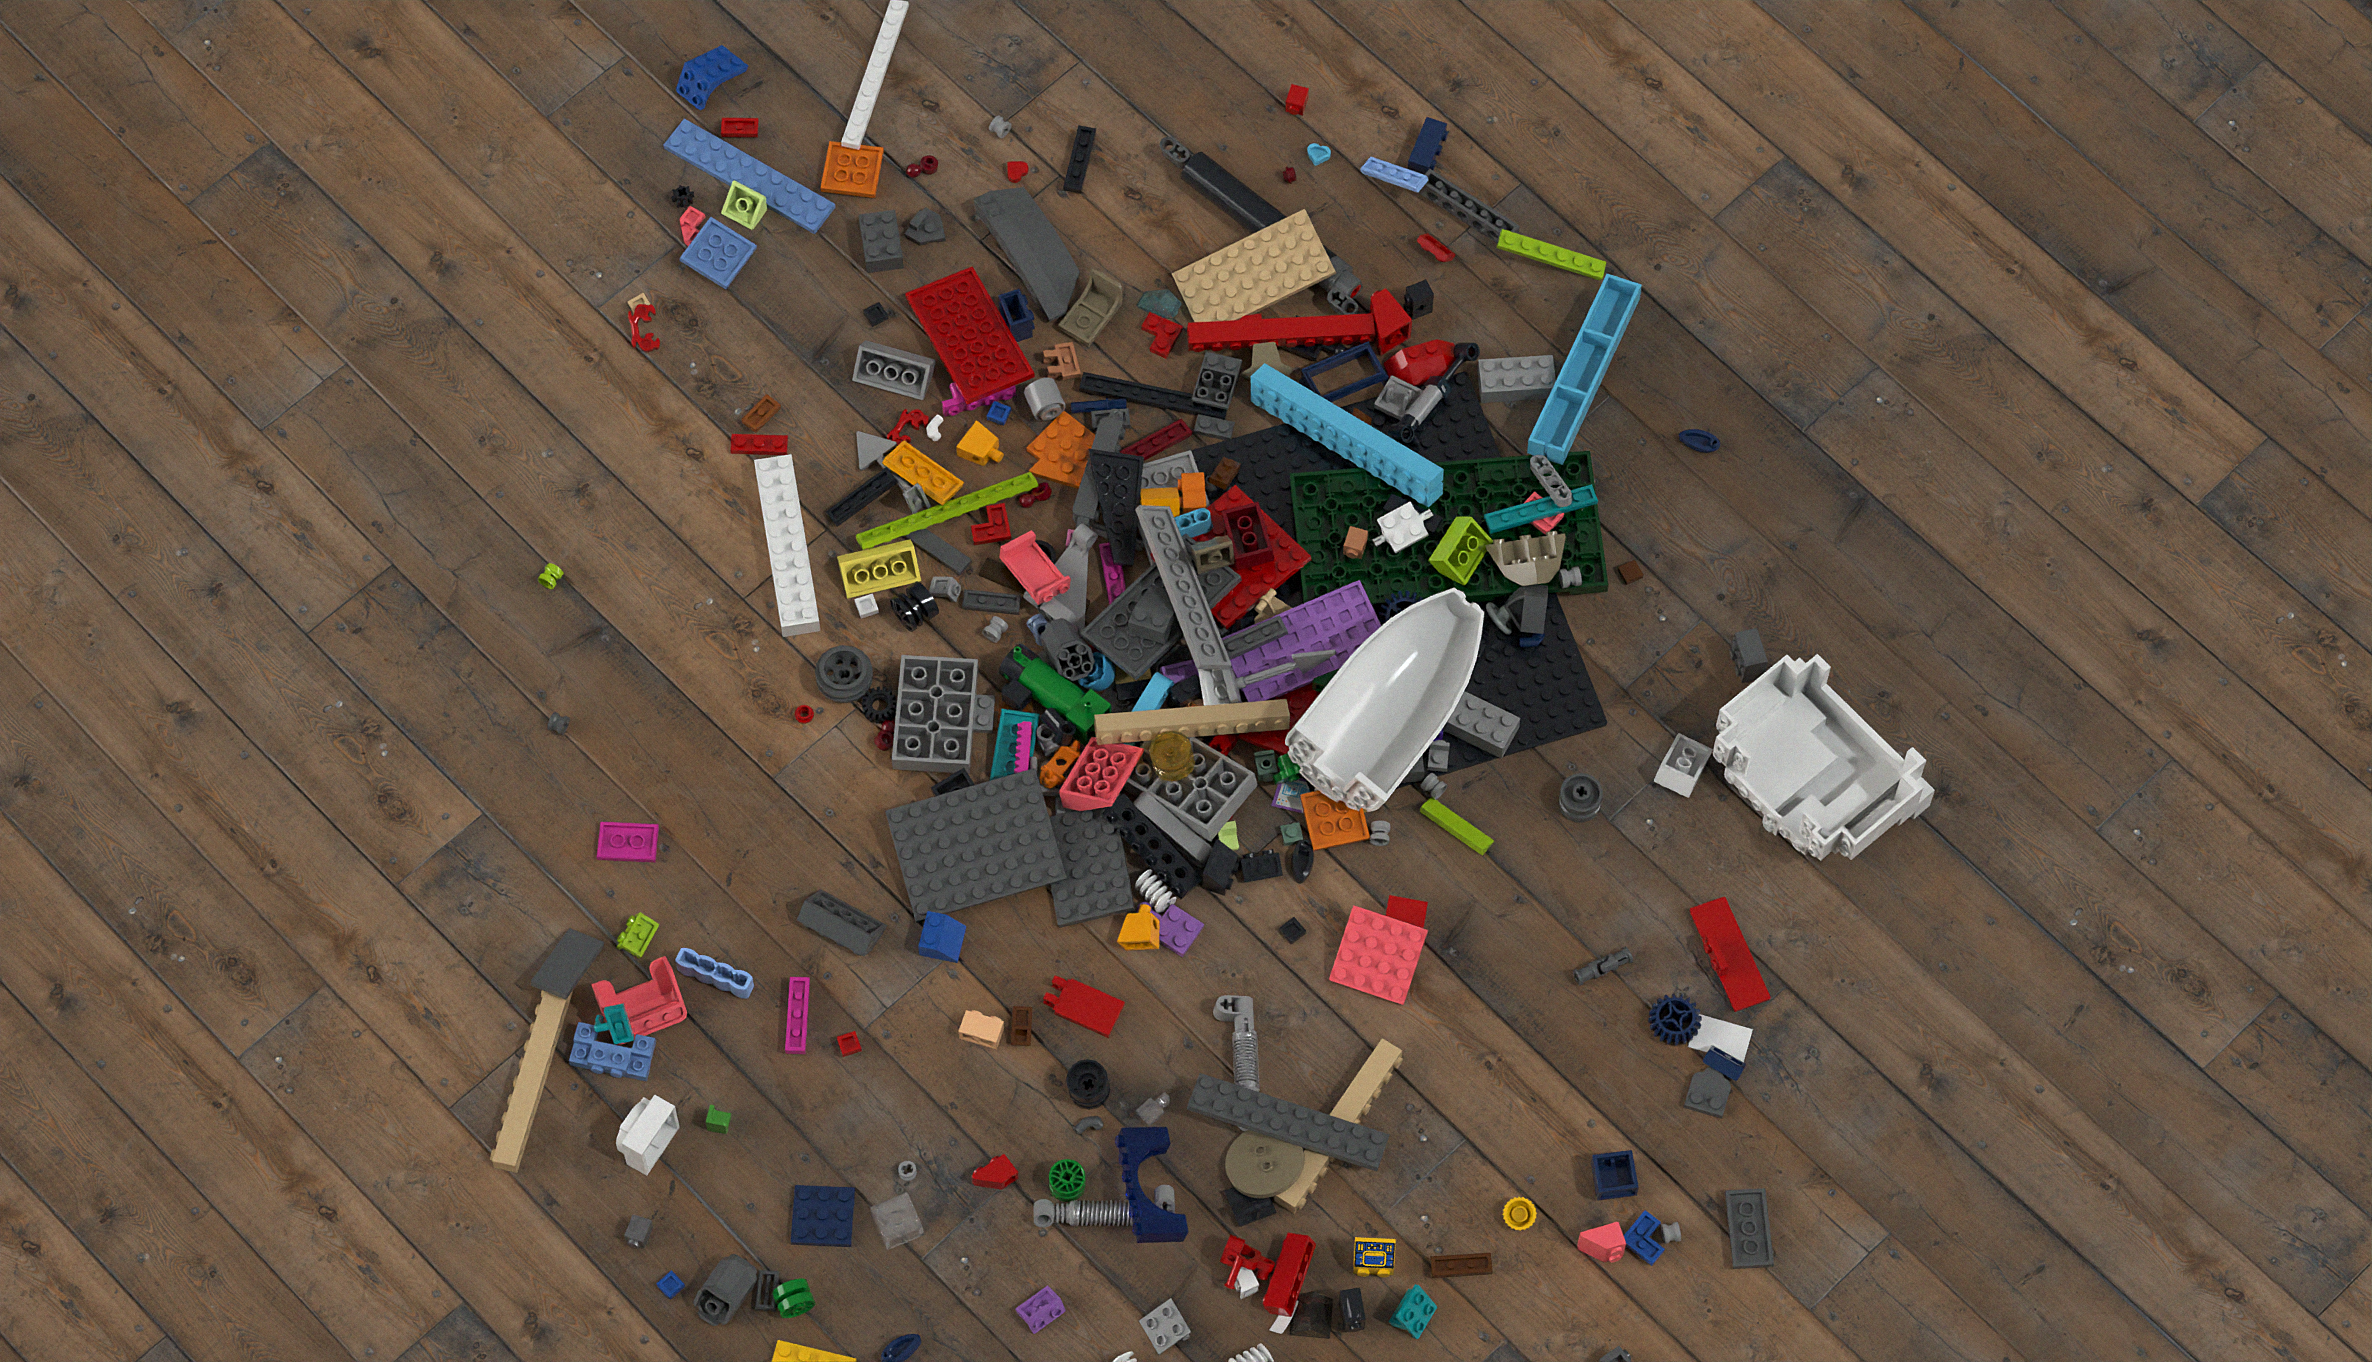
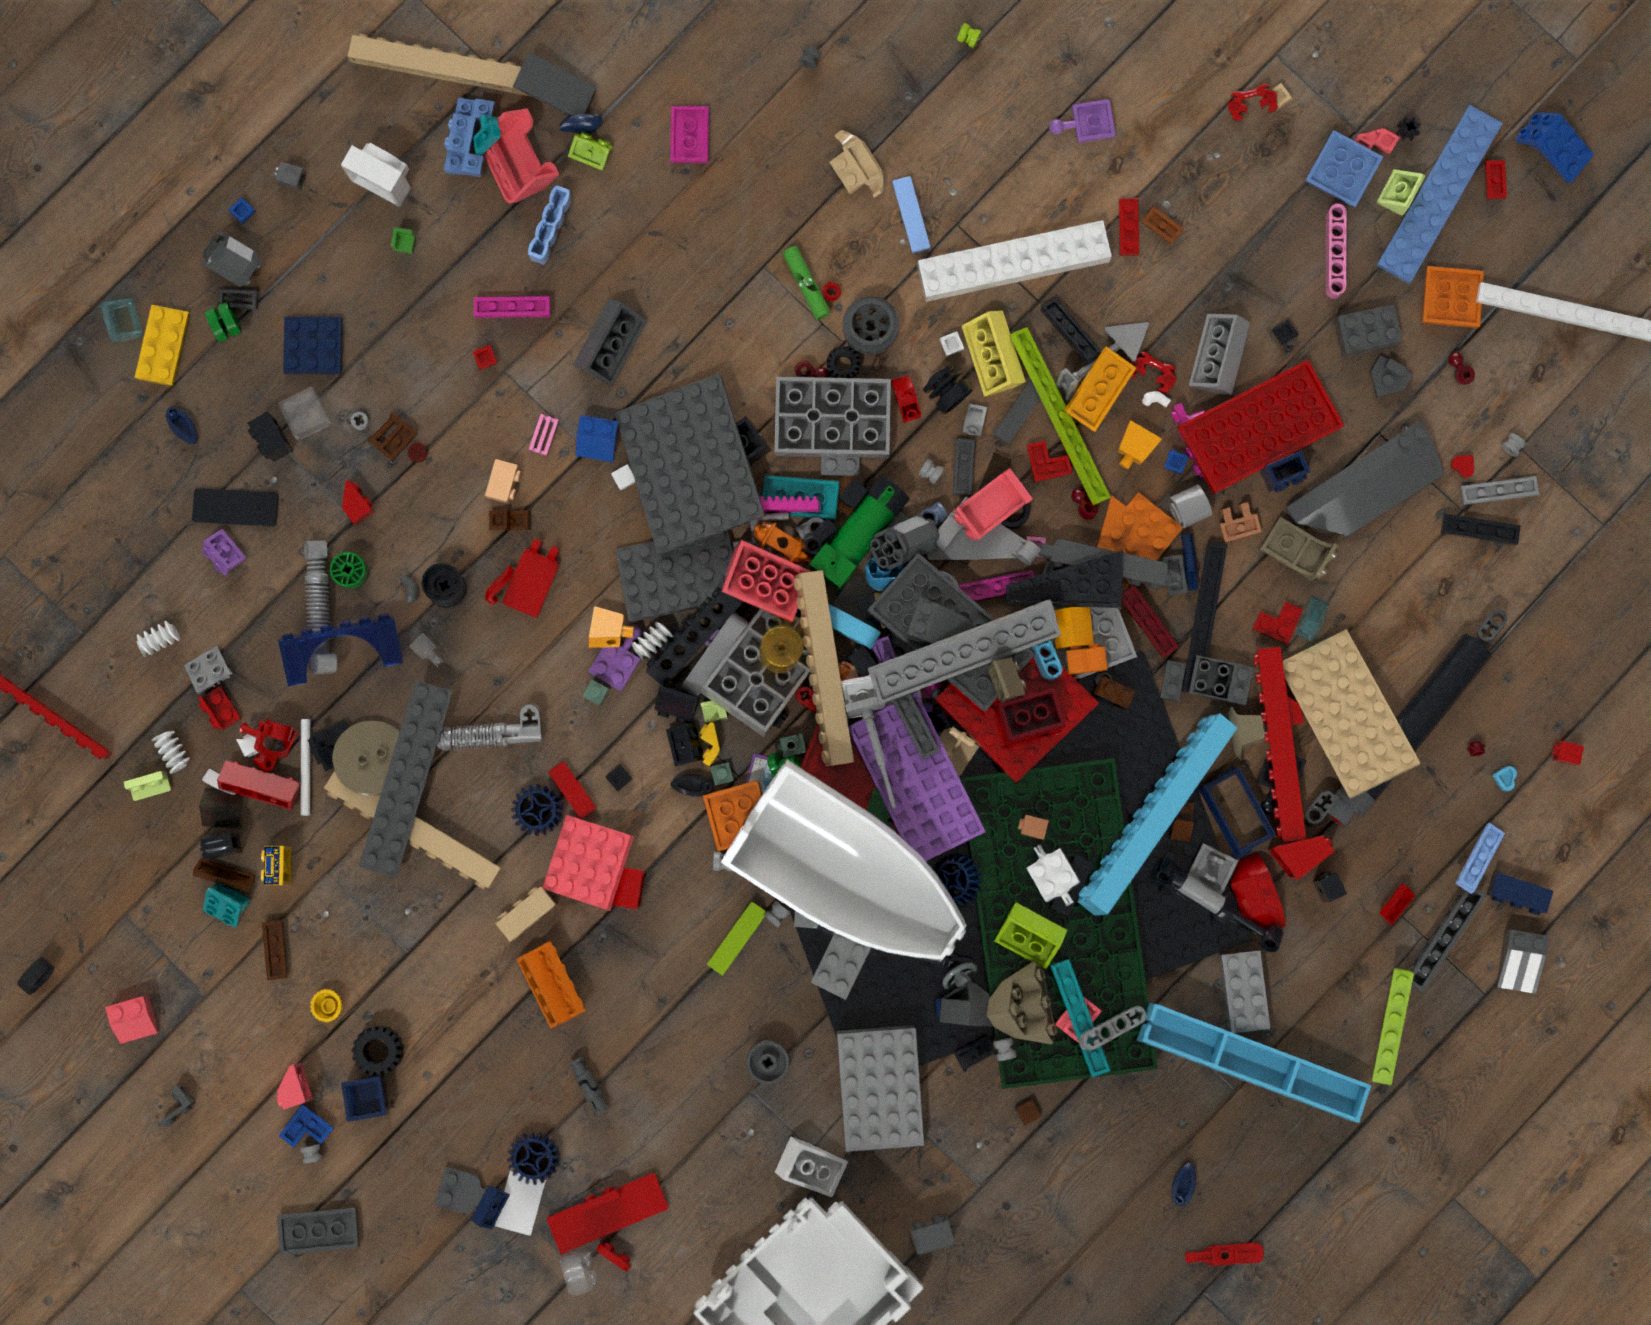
camera: 90 degrees right, 20 degrees up
(608, 941) = (581, 123): none -> dark blue arm
(649, 471) = (1091, 121): none -> medium lavender plate
(676, 684) = (857, 165): none -> tan plate
(730, 638) = (911, 214): none -> light blue tile
(791, 260) = (1336, 242): none -> bright pink beam
(797, 734) = (805, 280): none -> bright green piece
(919, 646) = (906, 398): none -> red slope
(921, 1252) = (270, 437): none -> black brick
(922, 979) = (548, 419): none -> bright pink tile
(930, 1132) = (396, 441): none -> reddish brown plate
(945, 1114) = (417, 453): none -> clear red tile
(983, 915) = (623, 477): none -> white tile
(991, 1299) = (235, 507): none -> black piece
(1042, 143) = (1499, 490): none -> light grey tile
(1090, 1035) = (498, 585): none -> red arm
(1205, 945) = (596, 693): none -> sand green brick
(1206, 1316) = (219, 708): none -> red bracket
(1253, 840) = (710, 736): none -> yellow slope
(1269, 1232) = (305, 766): none -> white piece
(1303, 974) = (572, 790): none -> red tile
(1337, 1000) = (540, 819): none -> dark blue gear
(1382, 1313) = (223, 875): none -> reddish brown plate
(1428, 1019) = (525, 913): none -> tan brick
(1490, 148) = (1522, 960): none -> dark grey slope
(1500, 994) = (551, 984): none -> orange brick
(1568, 1148) = (361, 1050): none -> black tyre
(1574, 611) = (975, 1052): none -> black hinge
(1606, 696) = (880, 1088): none -> light grey brick
(1765, 399) = (1237, 1254): none -> red piece
(1768, 952) = (620, 1260): none -> red plate
(1788, 976) = (578, 1272): none -> clear brick

